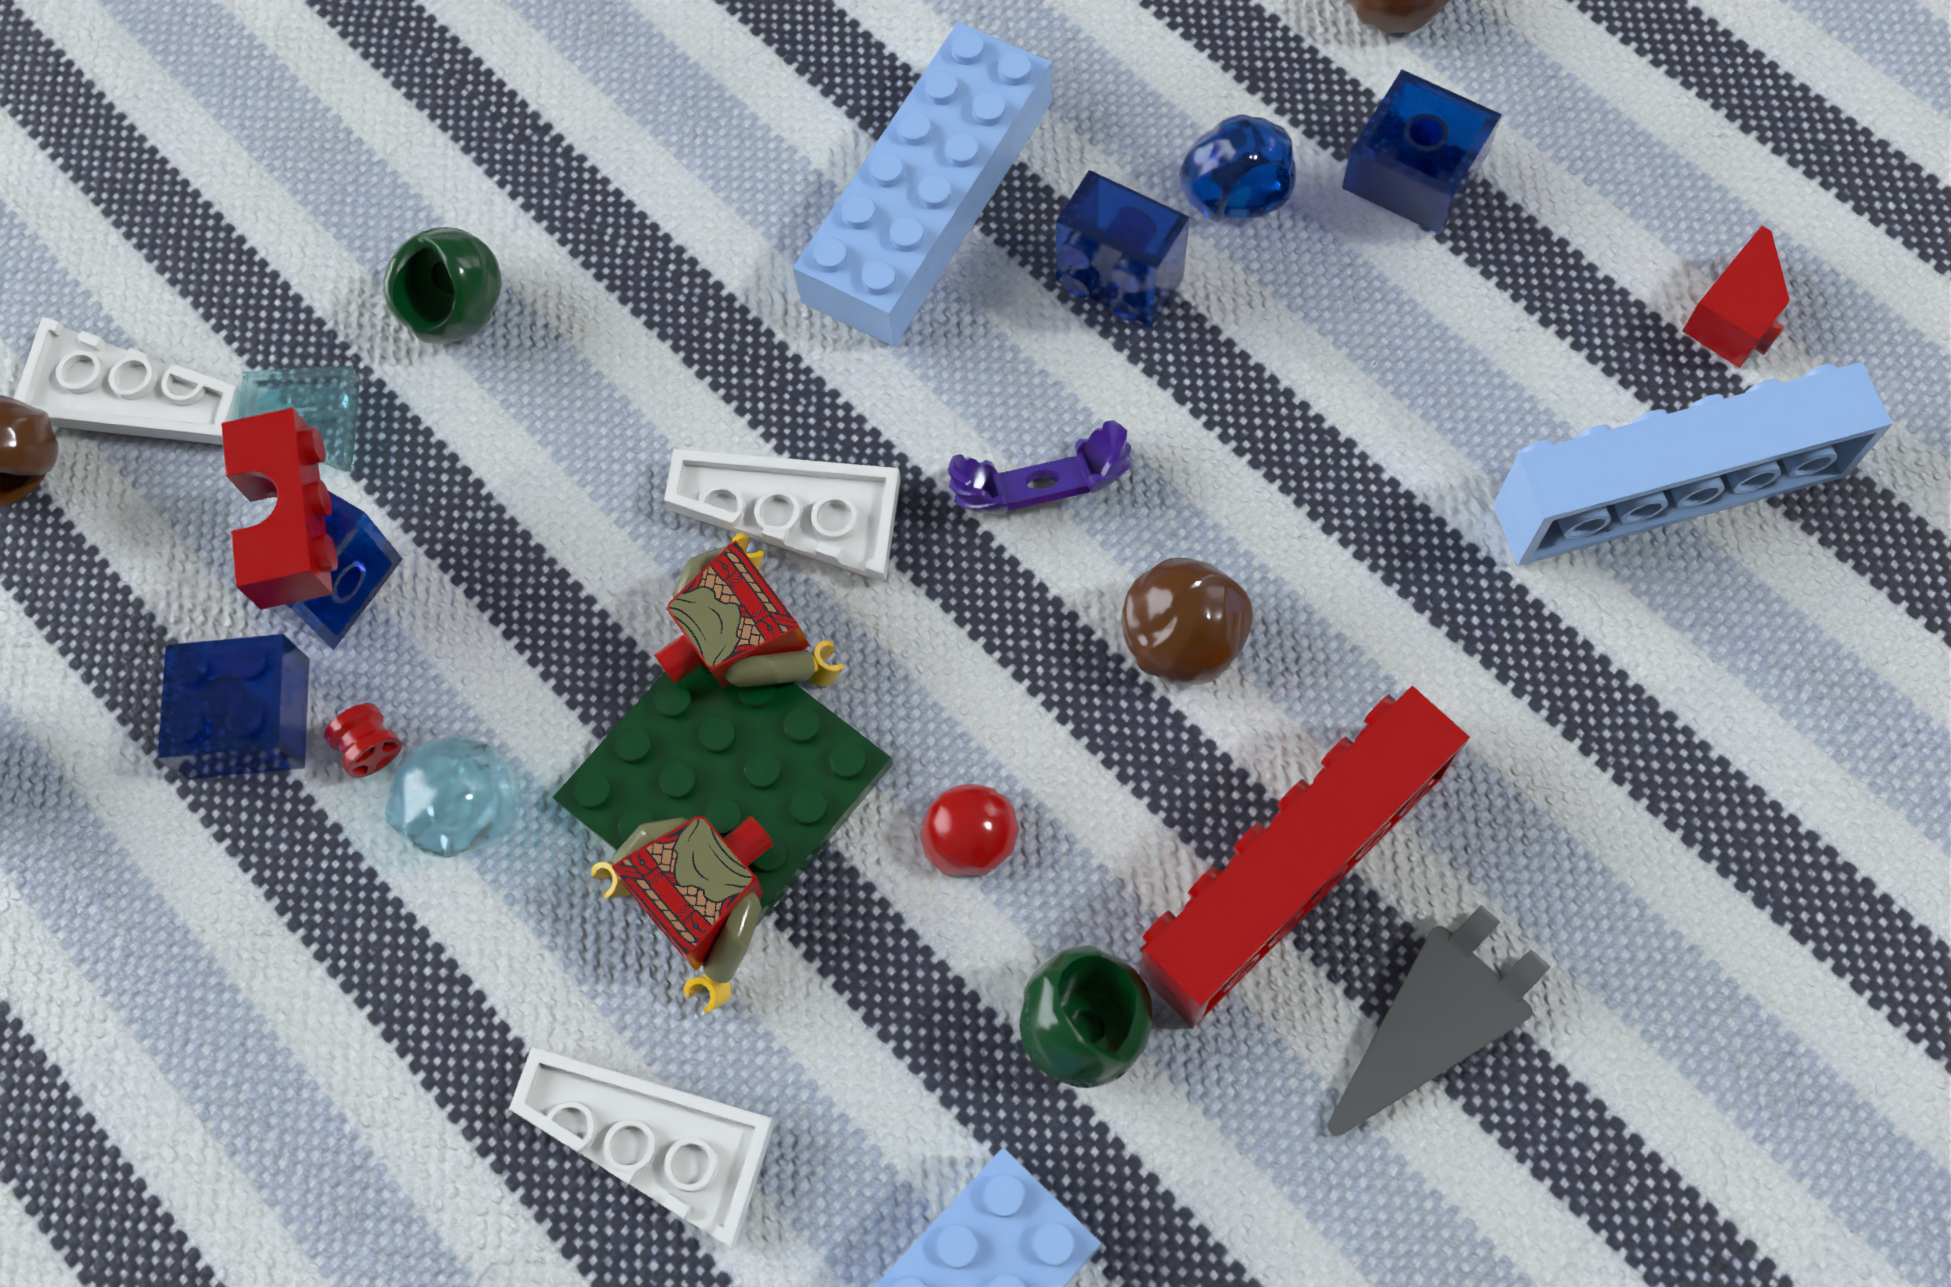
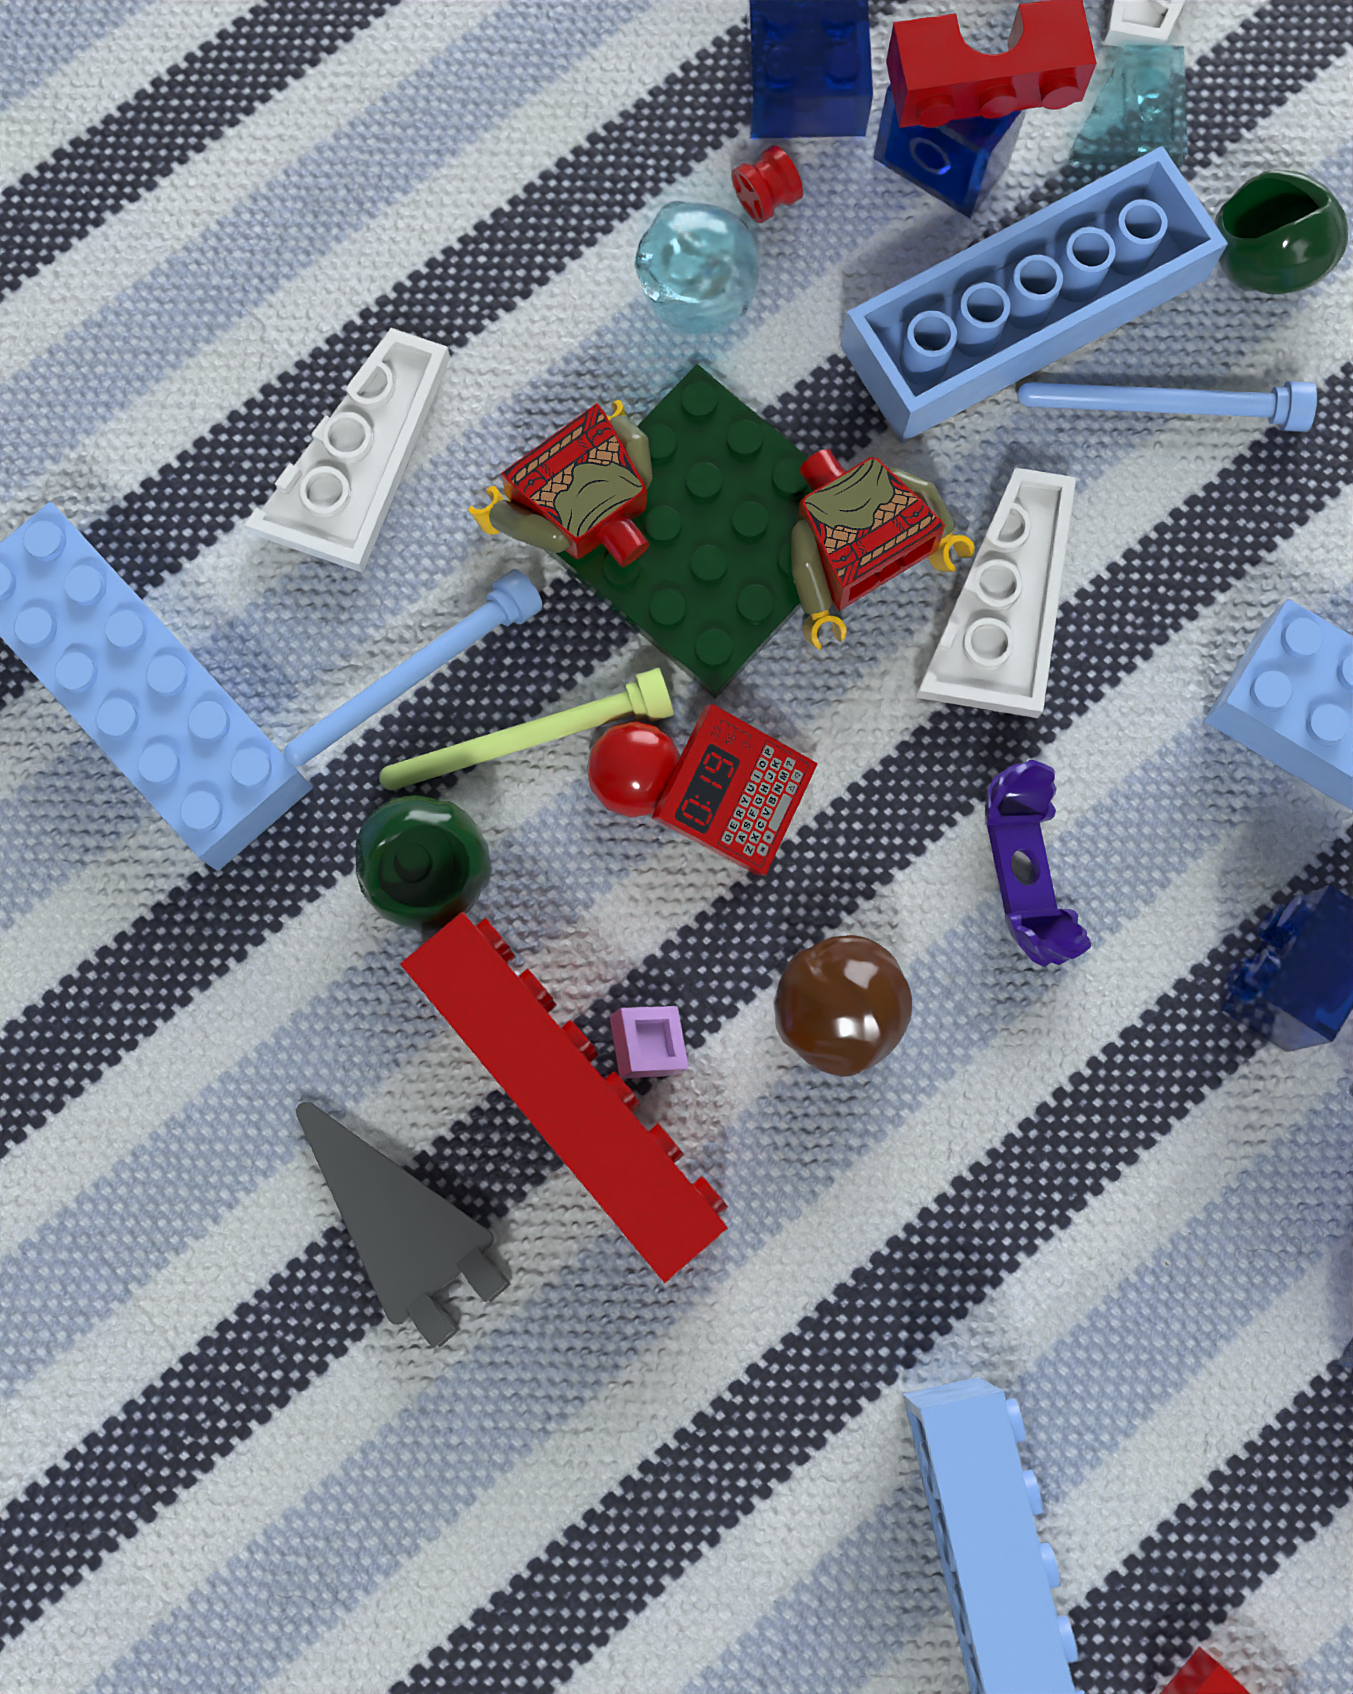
camera: 85 degrees right, 10 degrees up
(495, 493) = (1031, 294): none -> light blue brick
(602, 279) = (1288, 406): none -> light blue piece
(805, 960) = (510, 601): none -> light blue piece
(899, 823) = (643, 699): none -> yellowish green piece
(987, 732) = (734, 790): none -> tile
(1236, 794) = (648, 1042): none -> lavender plate

